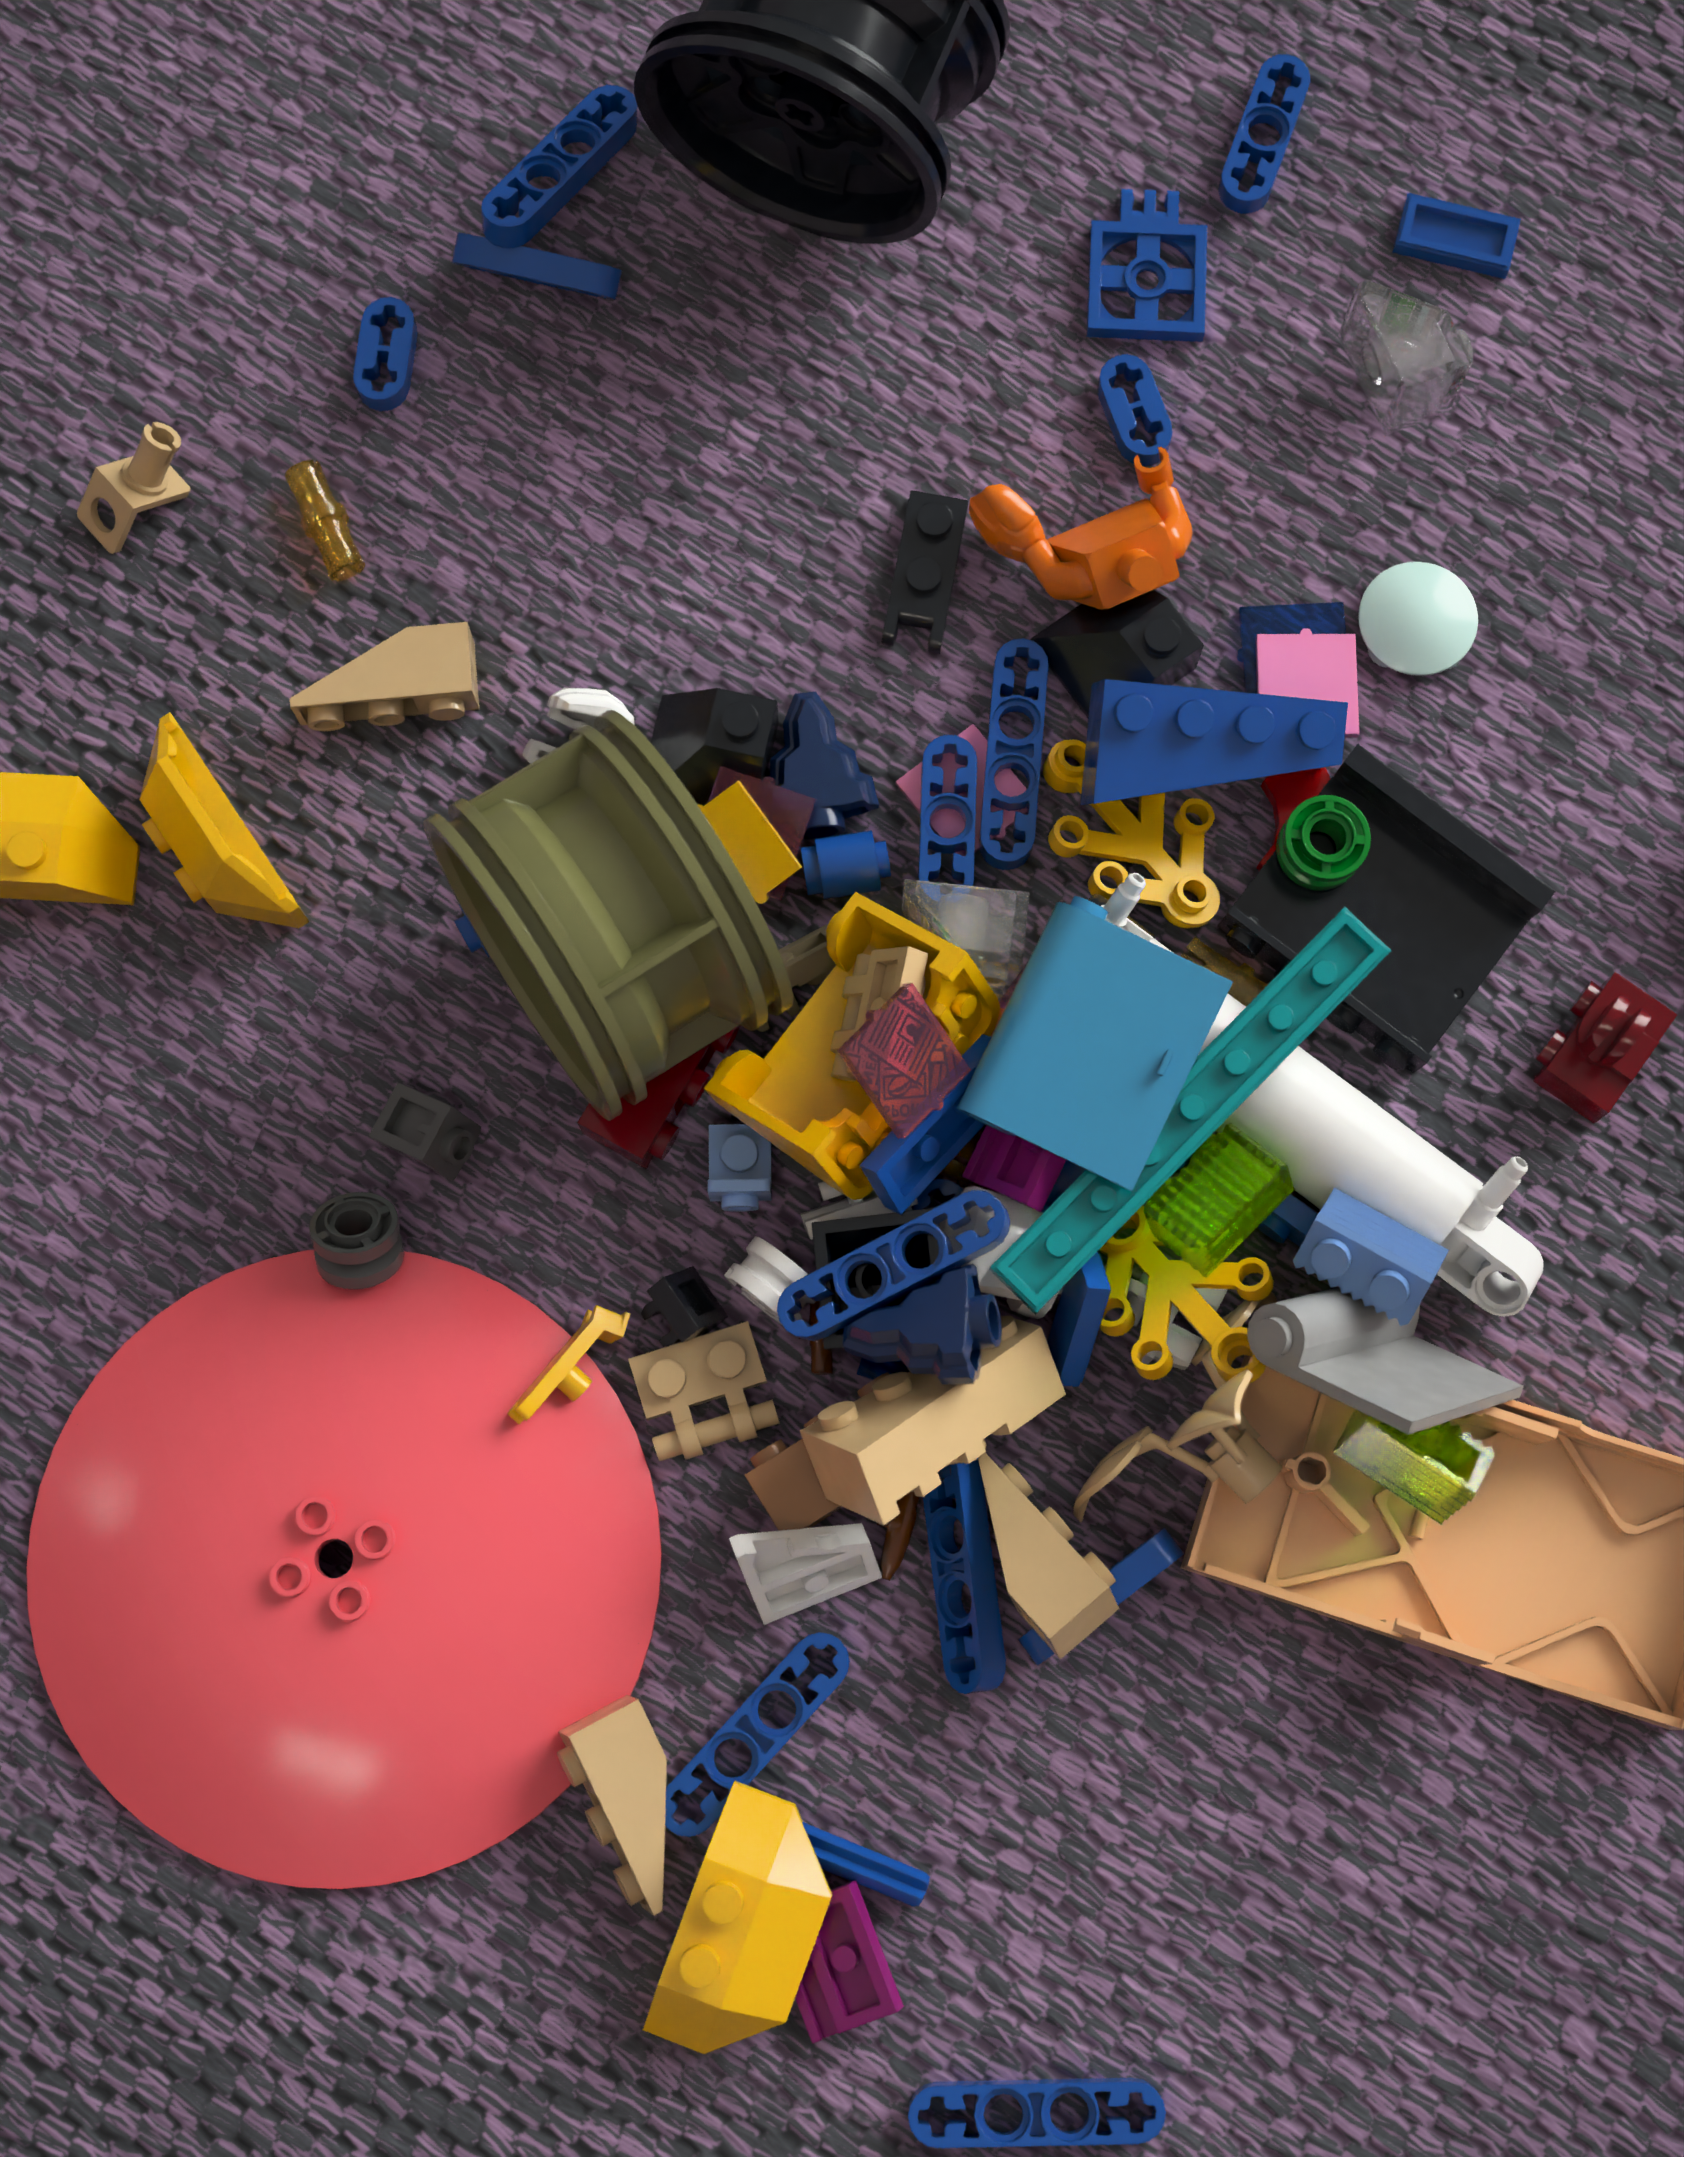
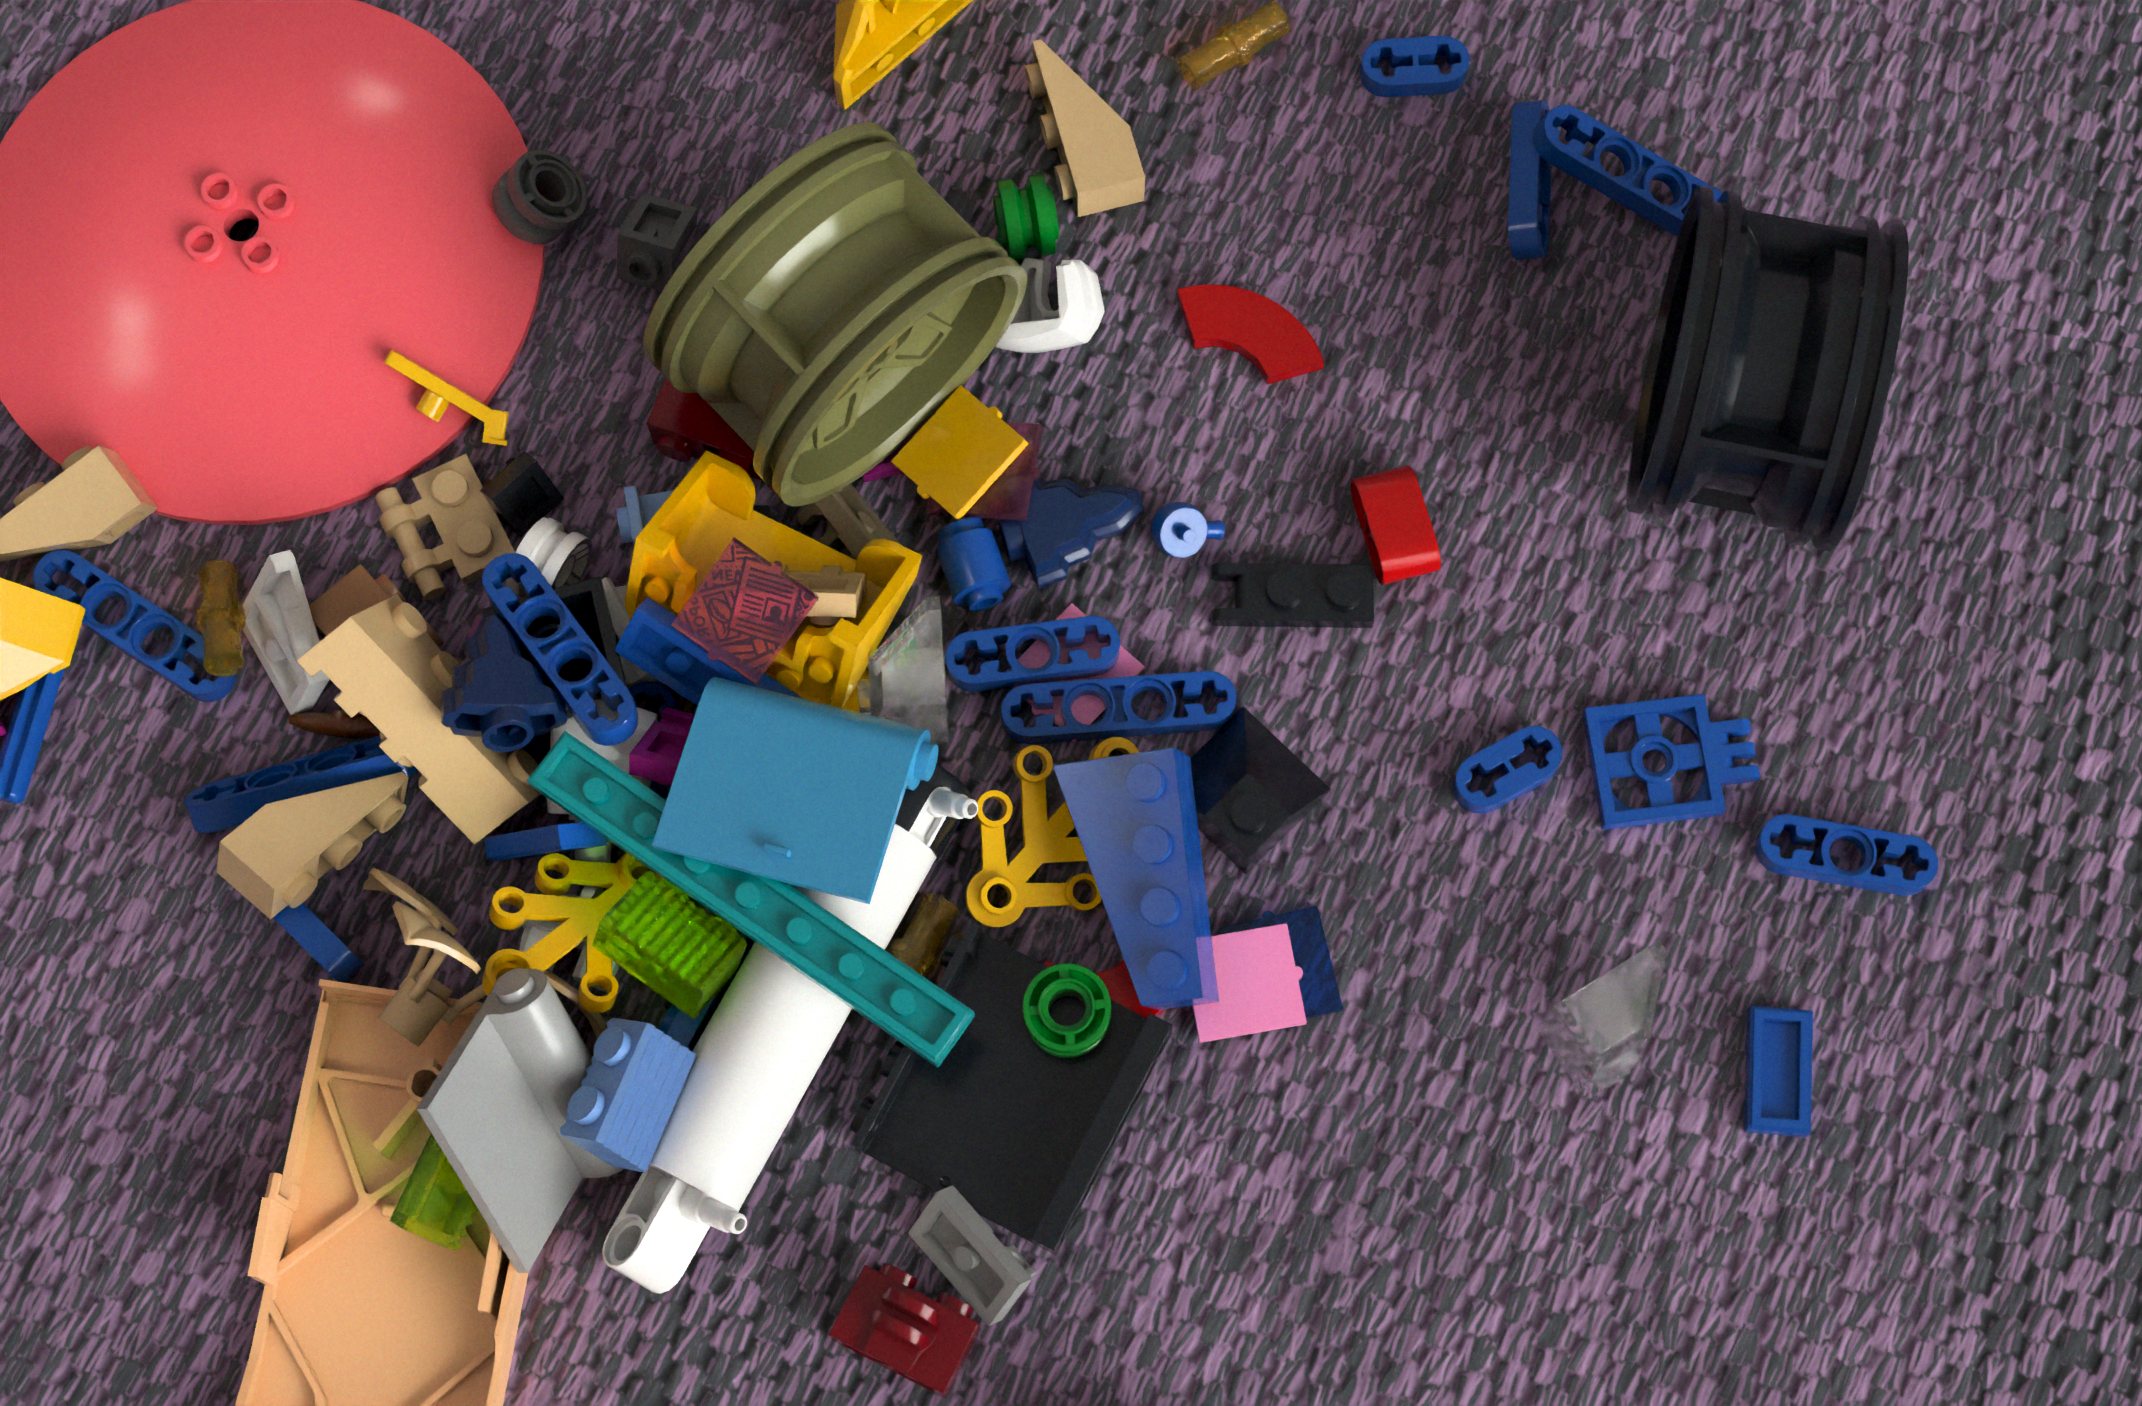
camera: 80 degrees right, 5 degrees down
(480, 748) = (1026, 217): none -> green wheel
(635, 562) = (1252, 327): none -> red tile
(712, 730) = (1076, 421): black slope -> none
(771, 1634) = (220, 618): none -> clear yellow pin
(842, 660) = (1182, 529): none -> piece
(874, 460) = (1395, 524): none -> red beam
(1099, 560) = (1331, 756): orange torso -> none
(1417, 619) = (1338, 1086): light aqua dish -> none
(1542, 974) = (971, 1255): none -> light grey hinge

